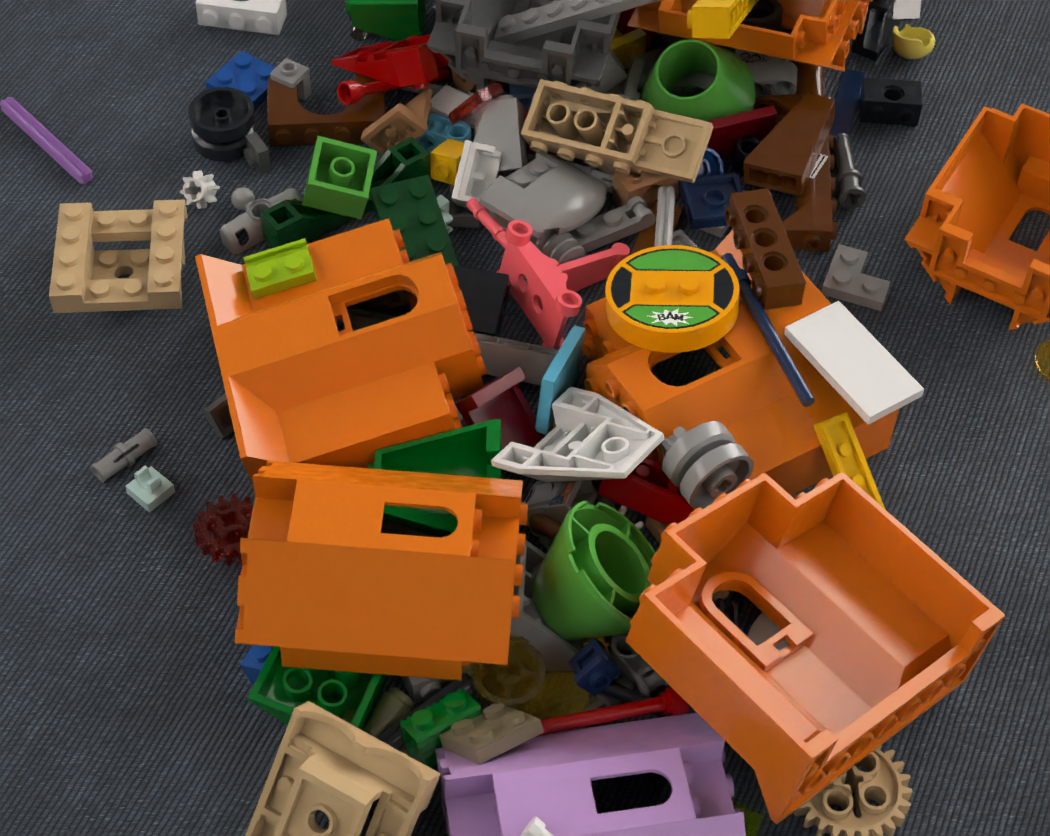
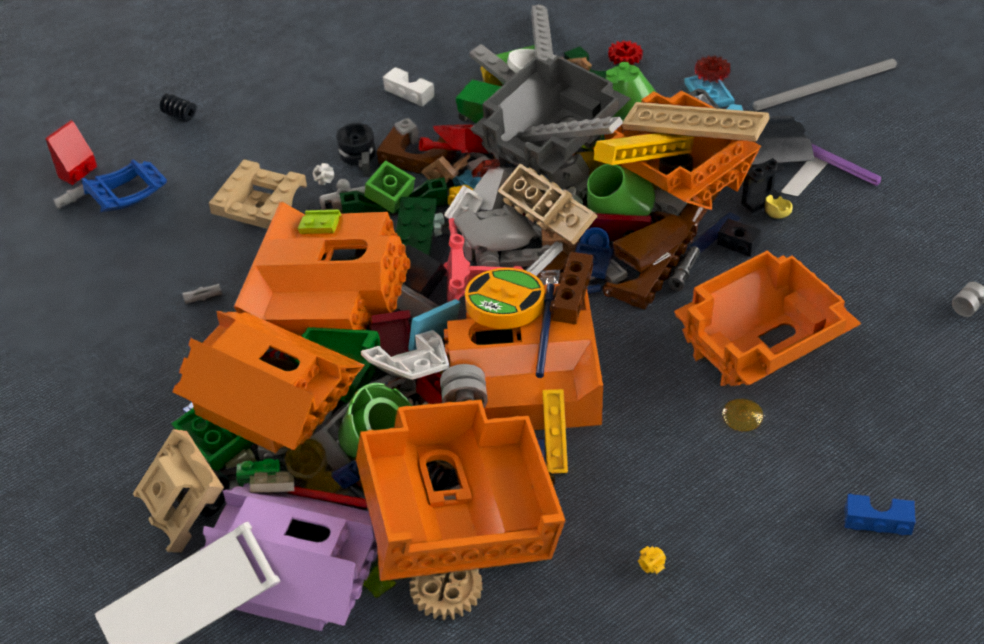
camera: 30 degrees right, 5 degrees down
(46, 140) = (267, 127): medium lavender axle -> none
(149, 488) = (204, 313): light aqua tile -> none
(244, 74) = (383, 123): blue plate -> none
(848, 283) = (643, 328): light grey plate -> none
(853, 362) = (580, 363): white tile -> none

